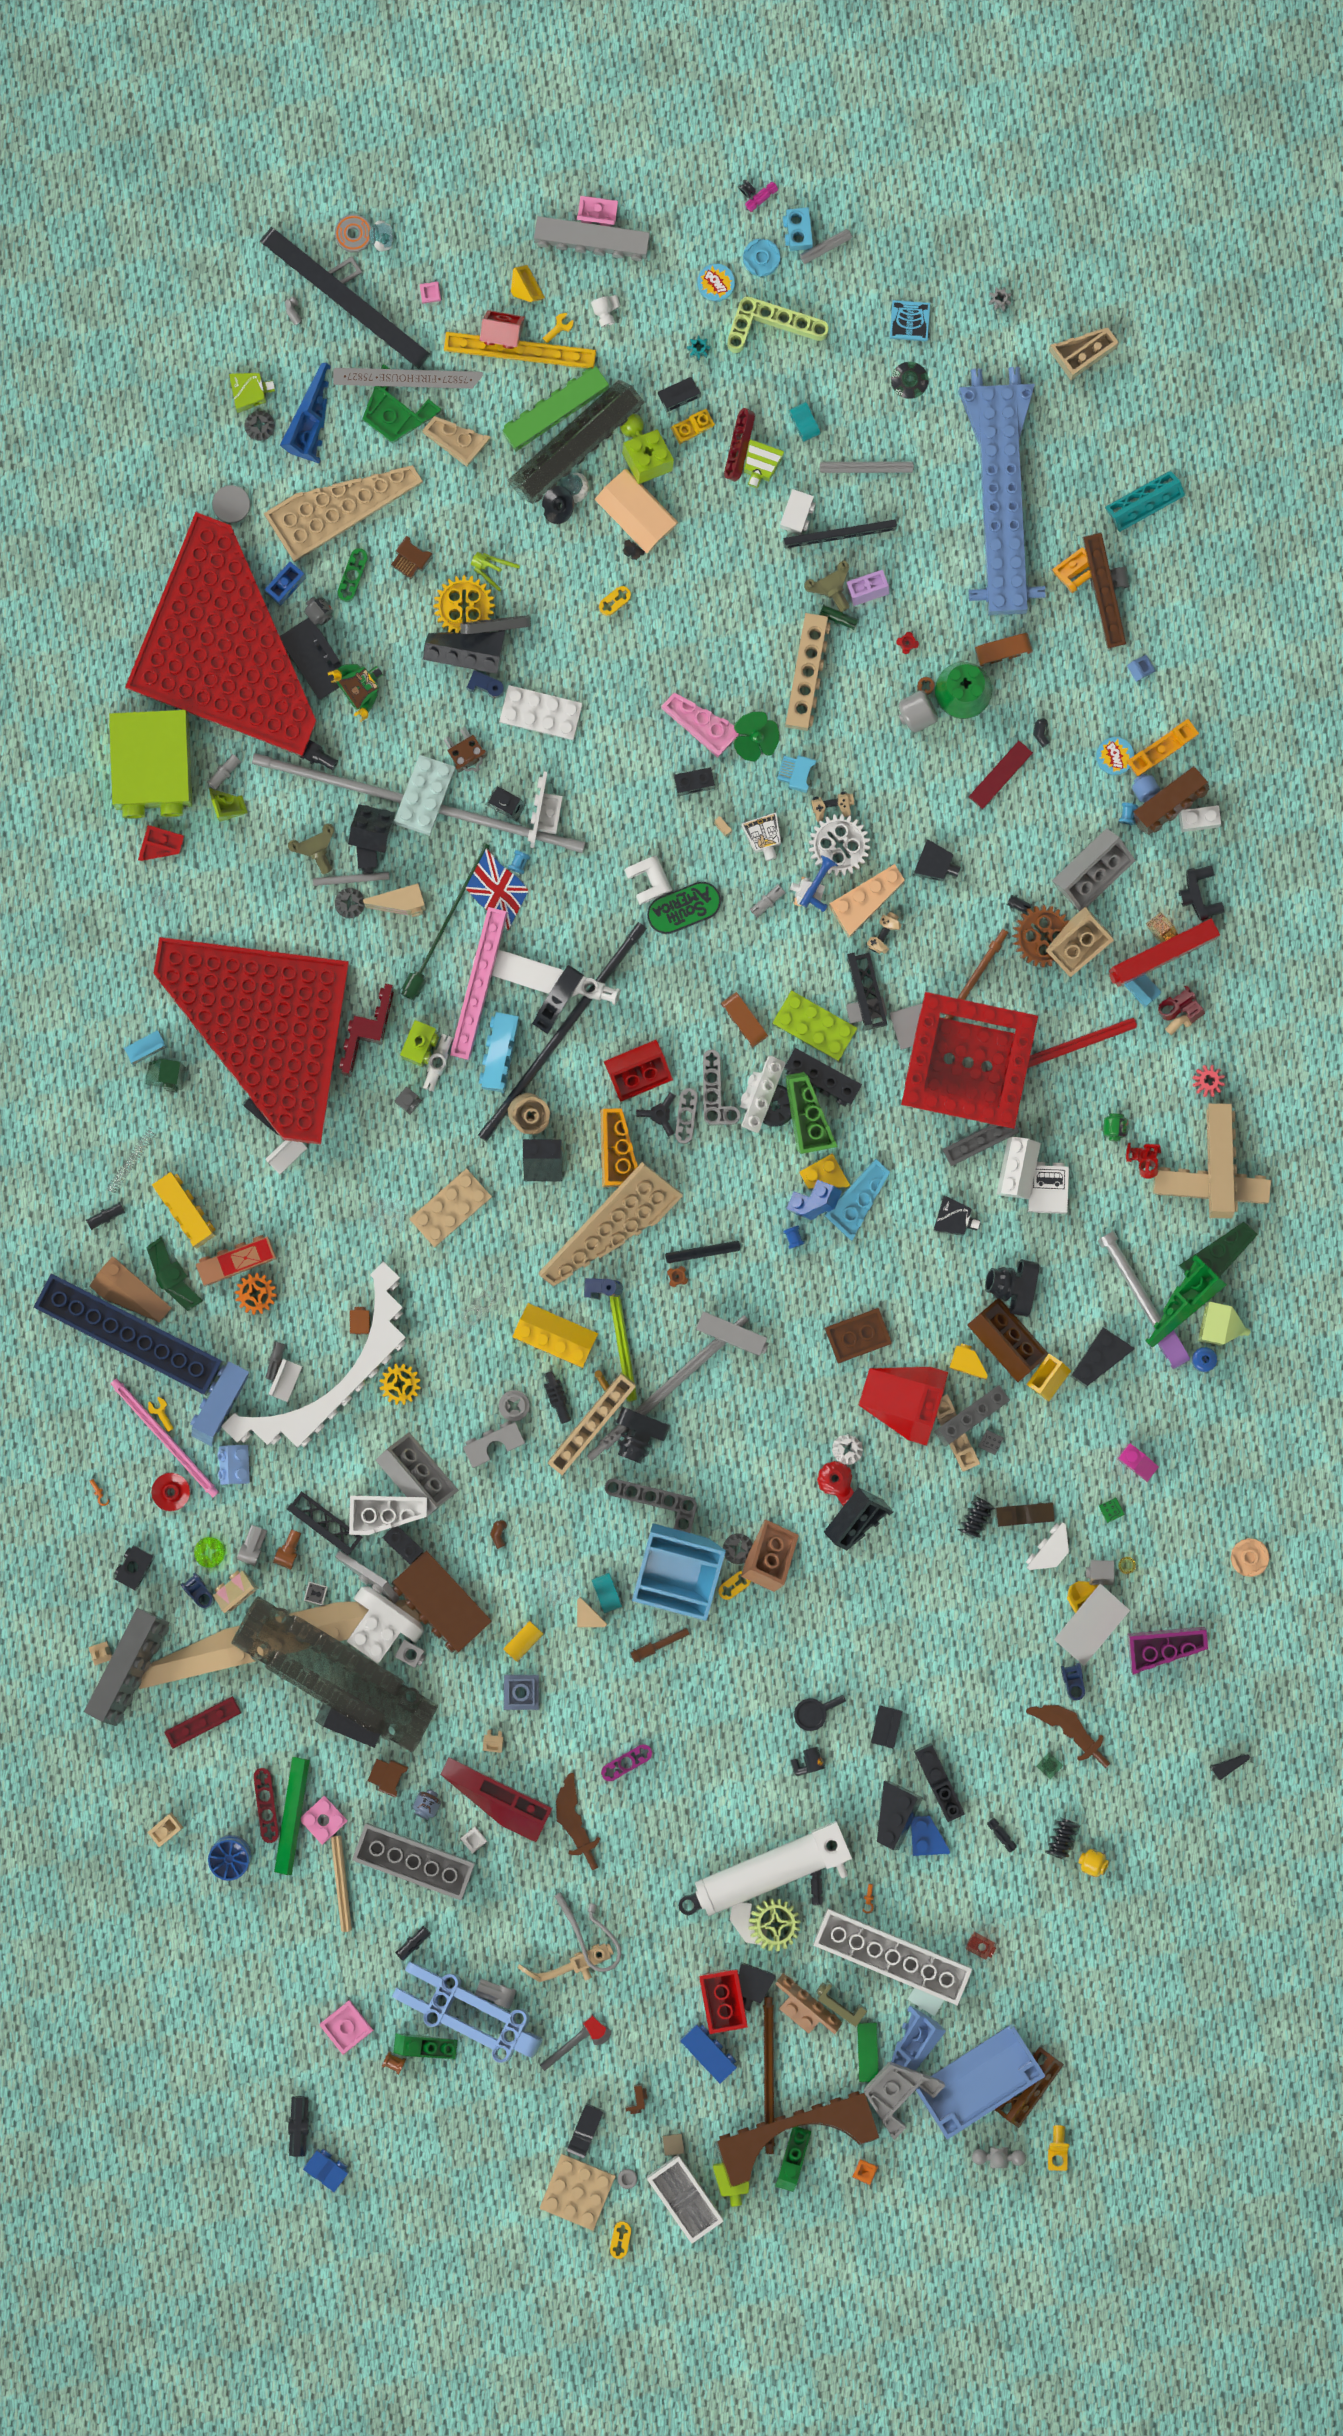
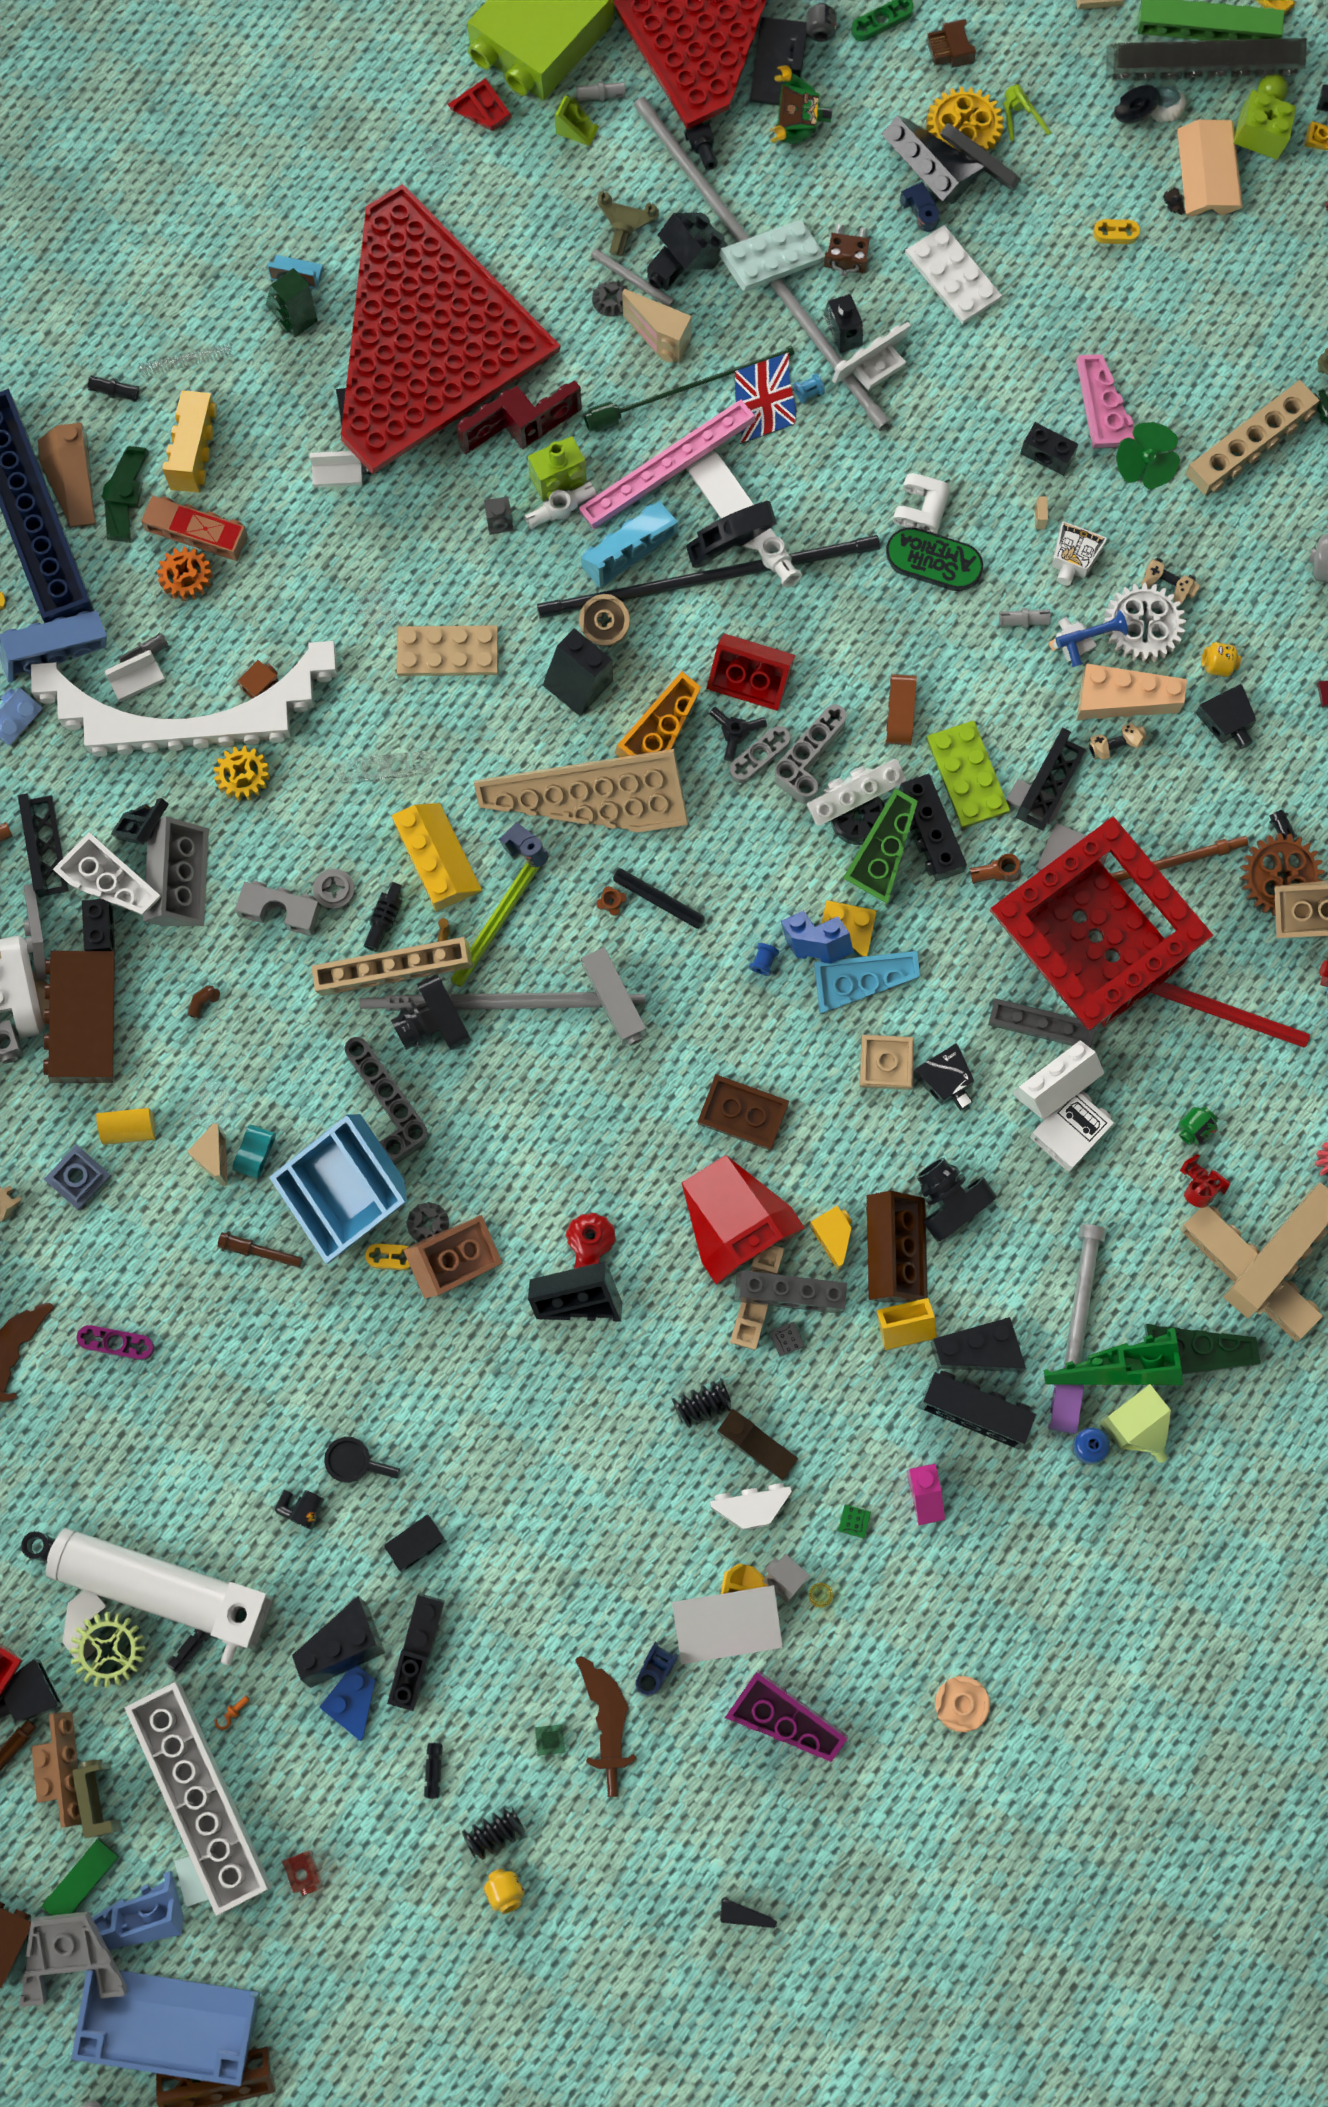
camera: 40 degrees right, 10 degrees down
(371, 1464) = (138, 824): none -> black wing
(796, 772) = (1160, 521): medium azure piece -> none
(850, 1457) = (625, 1227): white gear -> none
(879, 1072) = (995, 871): none -> dark orange pin
(902, 831) = (1220, 659): none -> yellow head
(913, 1237) = (886, 1062): none -> tan plate
(1127, 1394) = (978, 1410): none -> black brick

